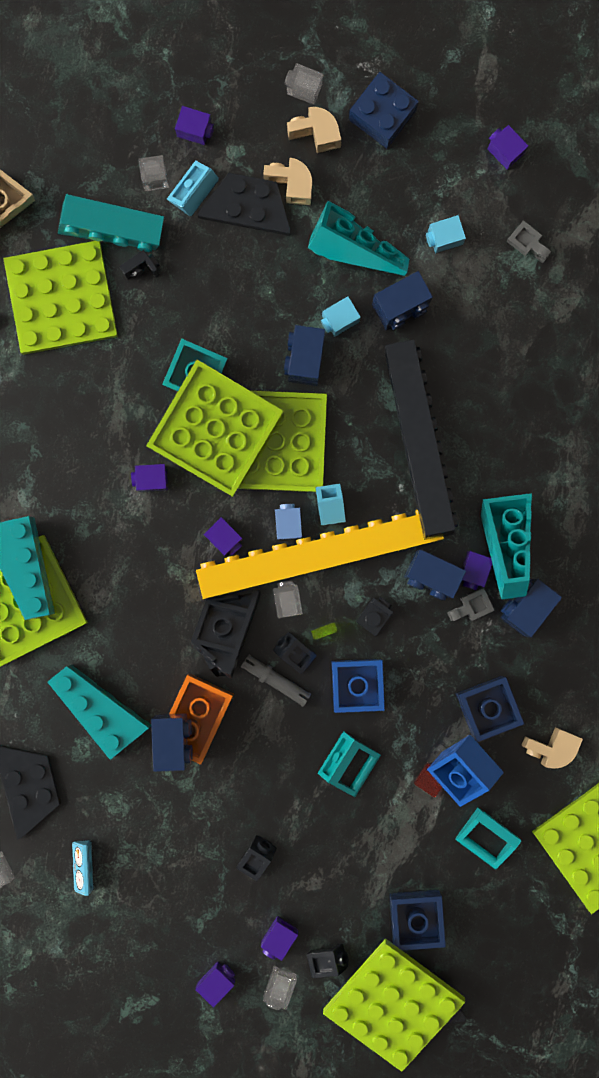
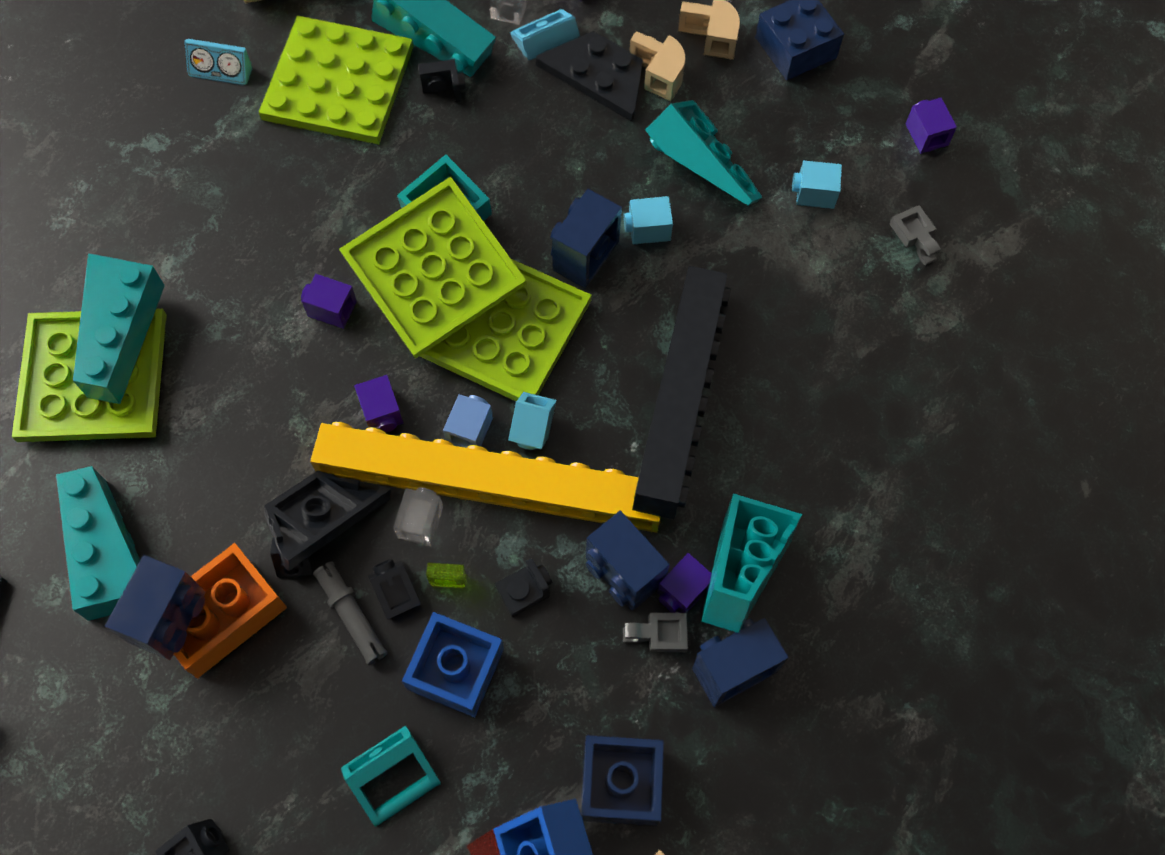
camera: 20 degrees right, 20 degrees down
(401, 301) = (732, 226): dark blue brick -> none

